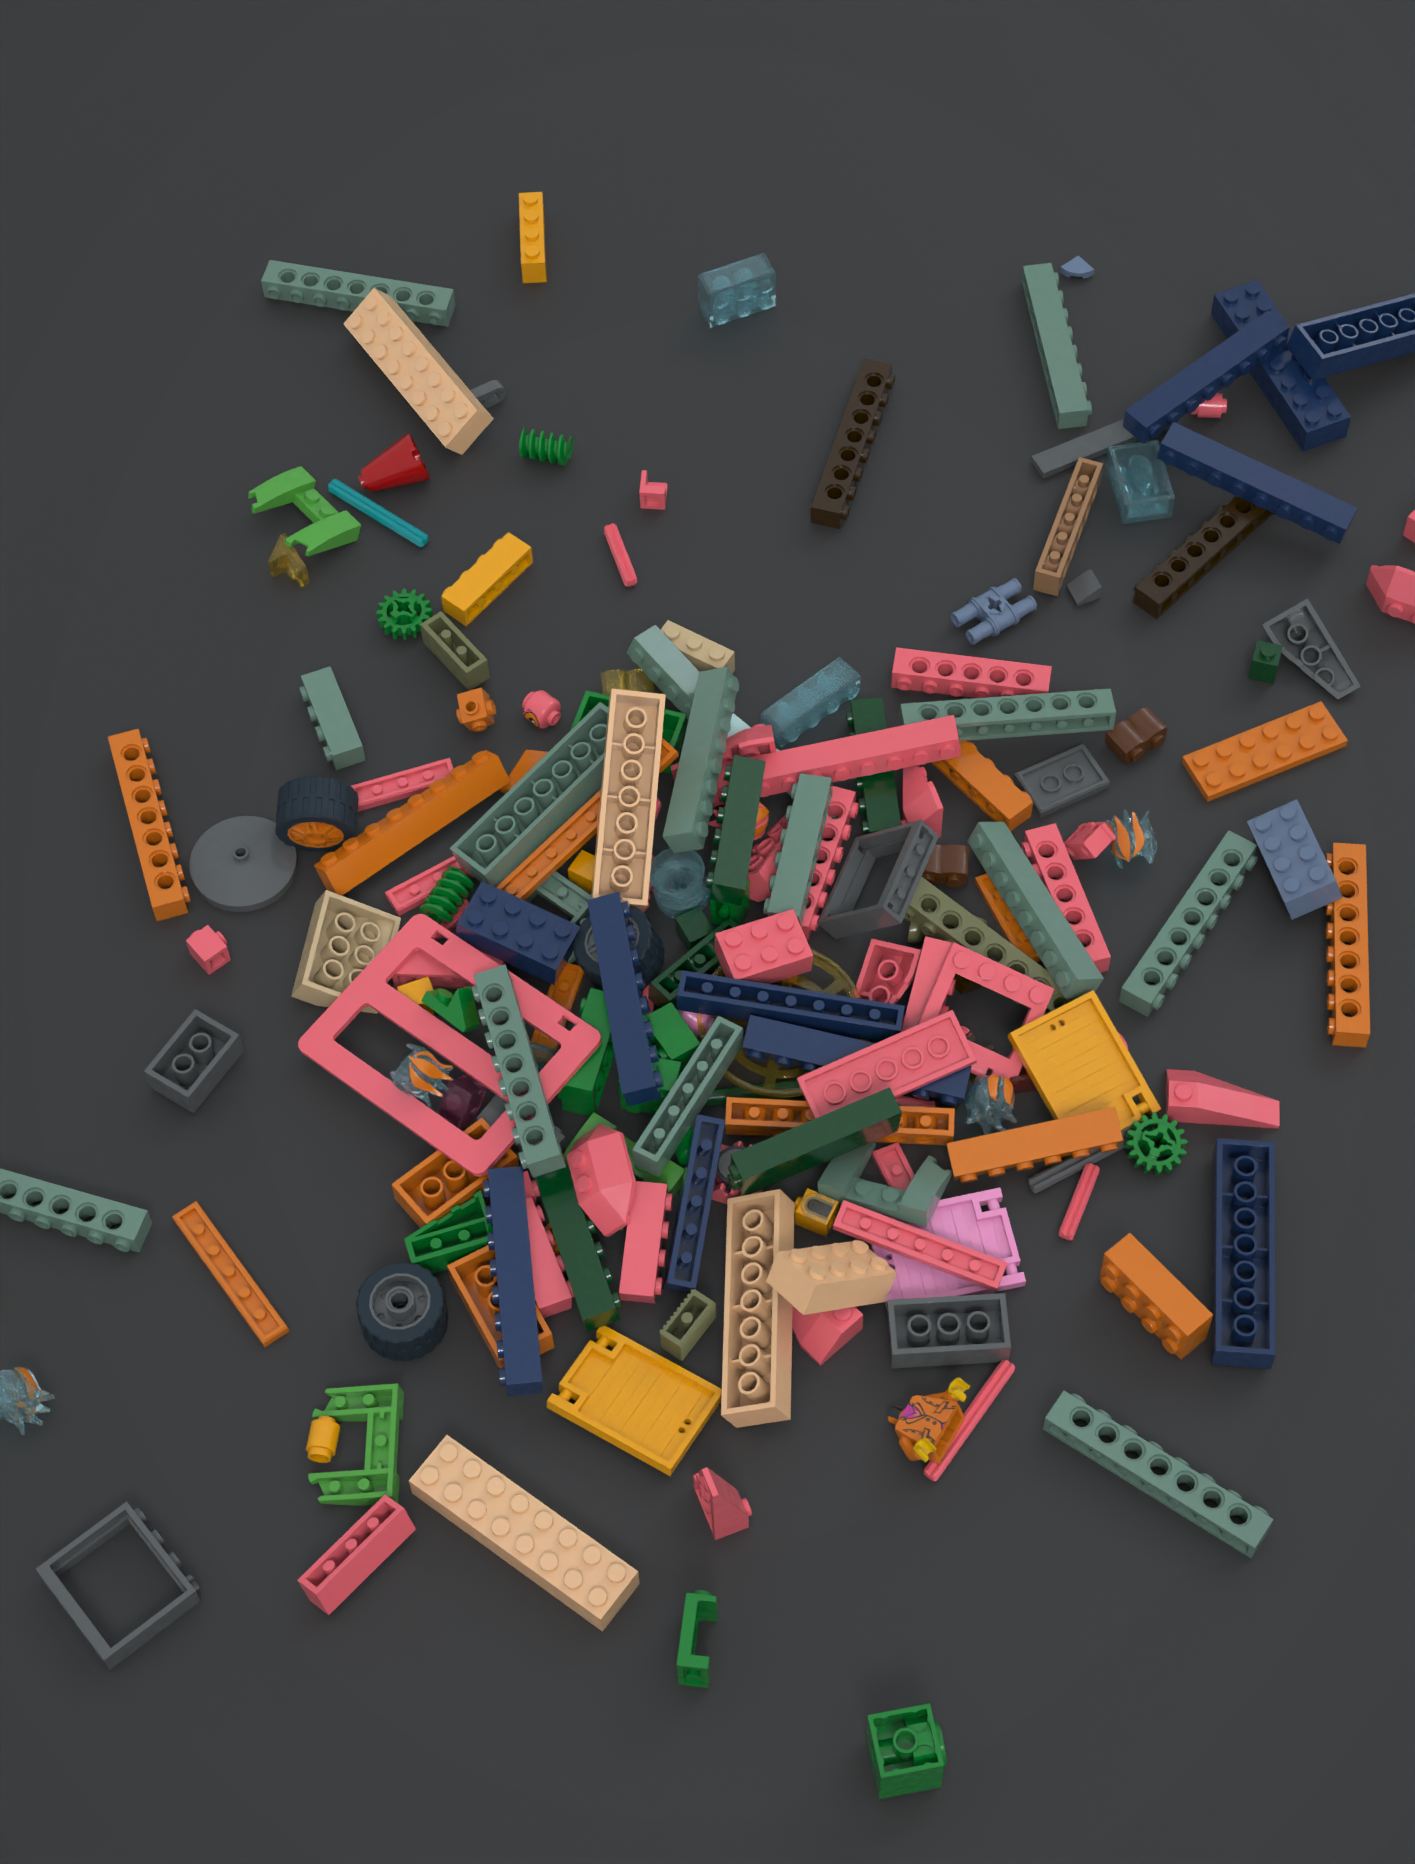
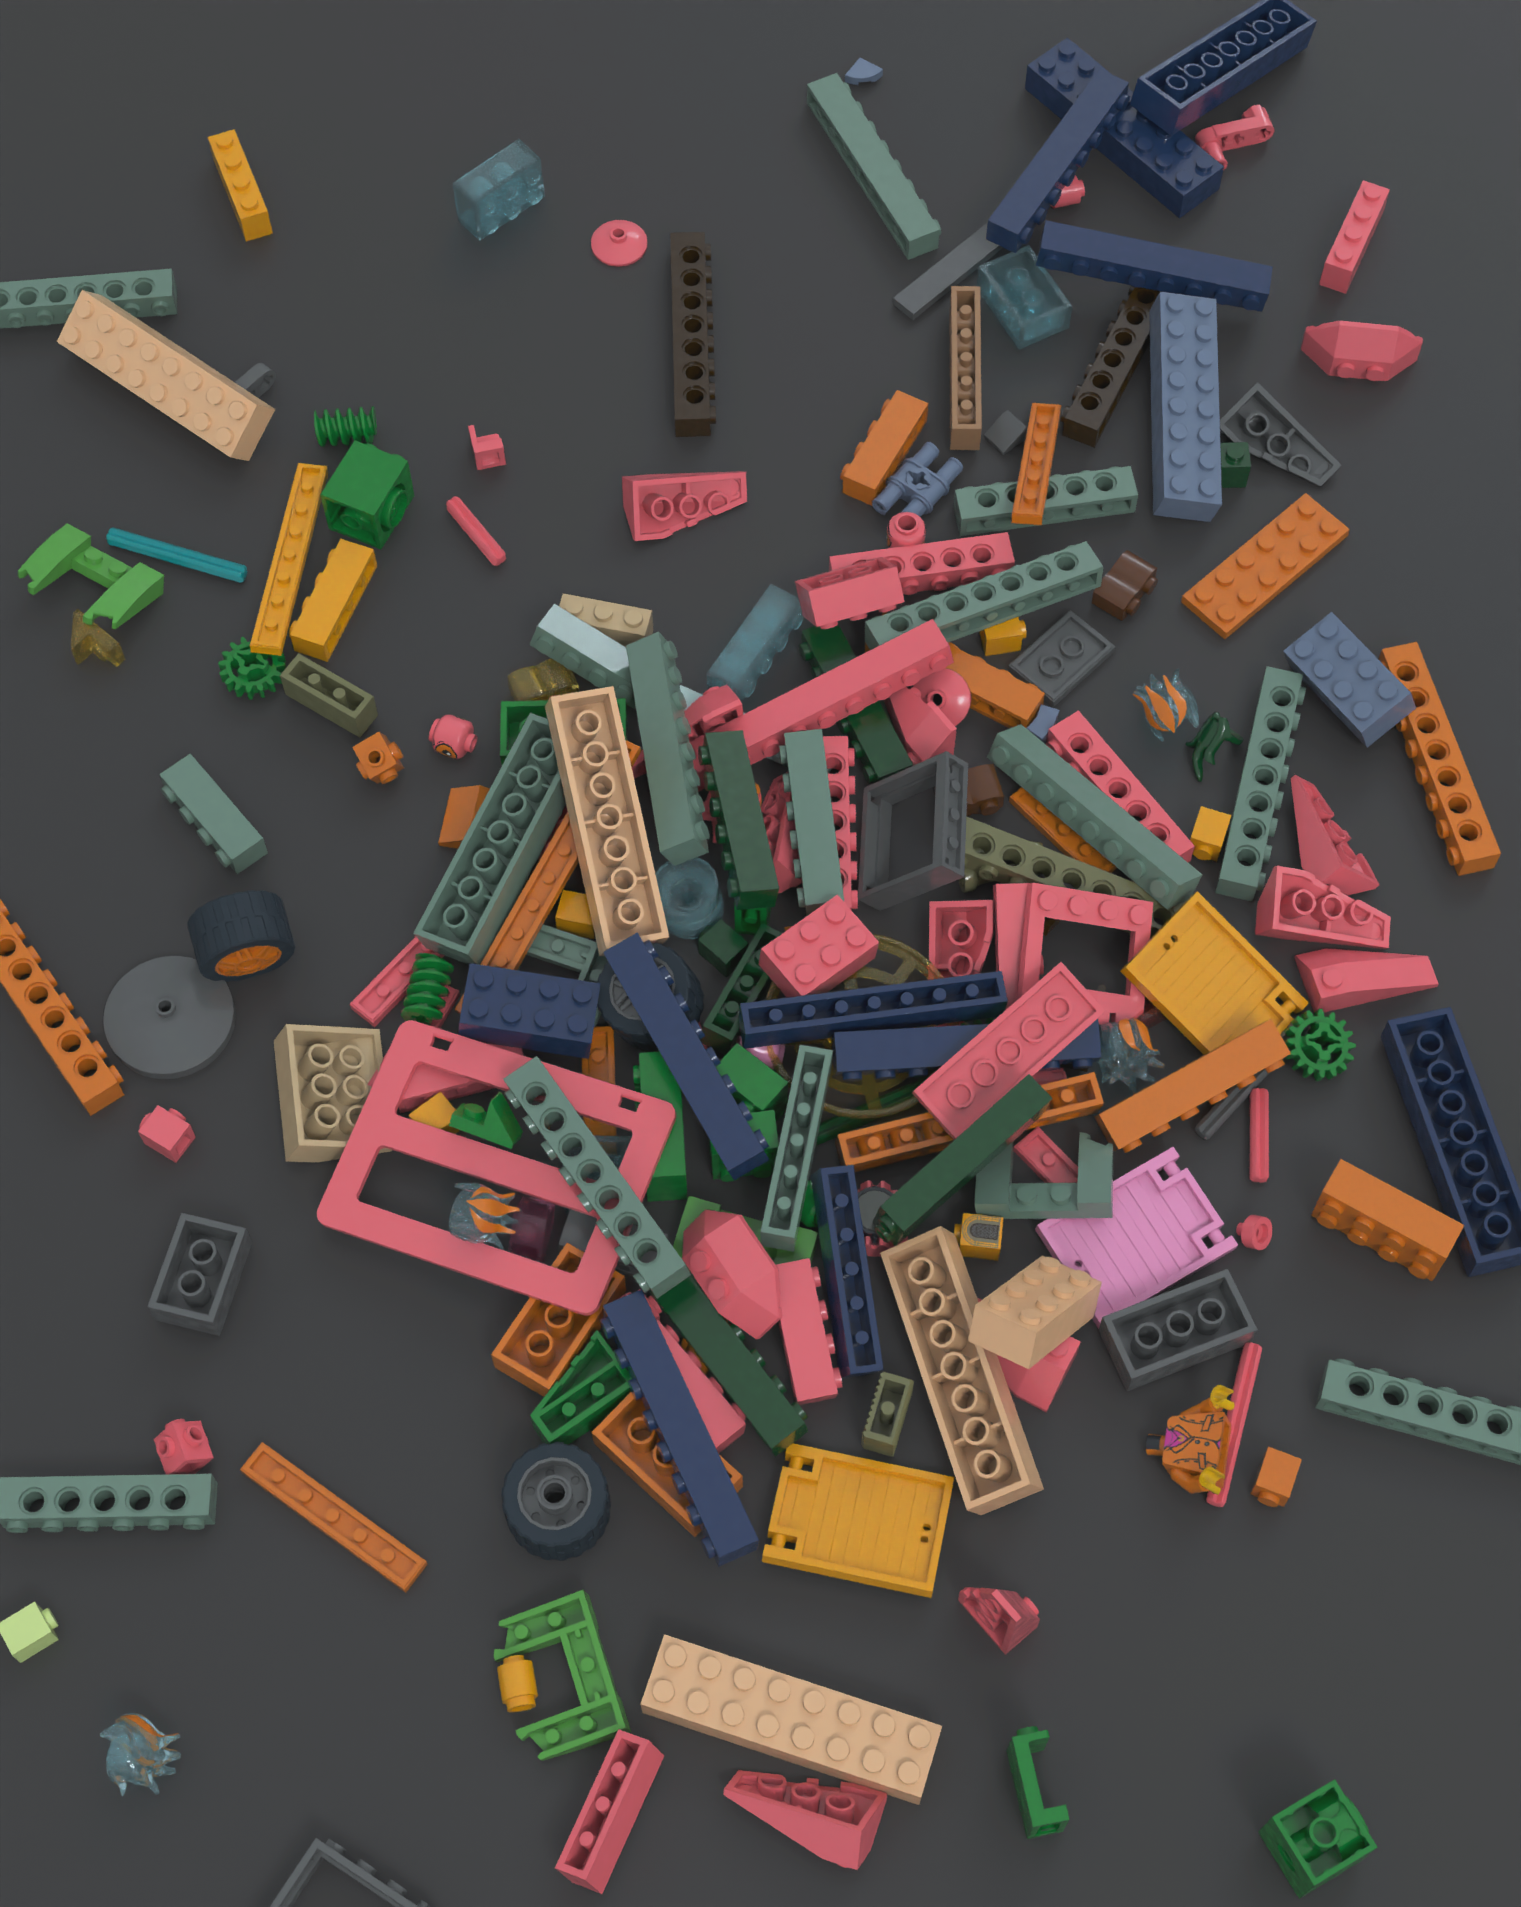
camera: 20 degrees left, 5 degrees up
(134, 1185) = (183, 1447): none -> coral brick
(395, 467) = (178, 496): red cone -> none
(400, 784) = (327, 867): coral tile -> none
(412, 822) = (353, 914): orange brick -> none
(463, 538) = (289, 560): none -> light orange tile
(520, 1616) = (823, 1819): none -> coral wedge
(542, 503) = (368, 494): none -> green brick
(786, 572) = (669, 502): none -> coral wedge
(822, 357) = (619, 243): none -> coral dish
(898, 678) = (850, 592): none -> coral brick
(920, 1246) = (1112, 1242): coral plate -> none
(956, 785) = (953, 690): none -> coral dish
(968, 643) = (905, 530): none -> coral head
(978, 572) = (884, 447): none -> orange brick
(985, 1470) = (1275, 1477): none -> orange brick
(1018, 750) = (1003, 637): none -> light orange brick
(1028, 822) = (1045, 719): none -> sand blue piece
(1045, 1275) = (1255, 1232): none -> coral tile
(1089, 840) = (1122, 719): coral piece -> none
(1096, 618) = (1036, 464): none -> orange tile
(1113, 653) = (1089, 501): none -> sand green brick
(1128, 951) = (1209, 833): none -> light orange brick
(1154, 879) = (1208, 741): none -> dark green piece
(1189, 1035) = (1310, 911): none -> coral wedge
(1223, 990) = (1325, 844): none -> coral wedge
(1240, 604) = (1185, 407): none -> sand blue brick
(1392, 393) = (1250, 130): none -> coral beam

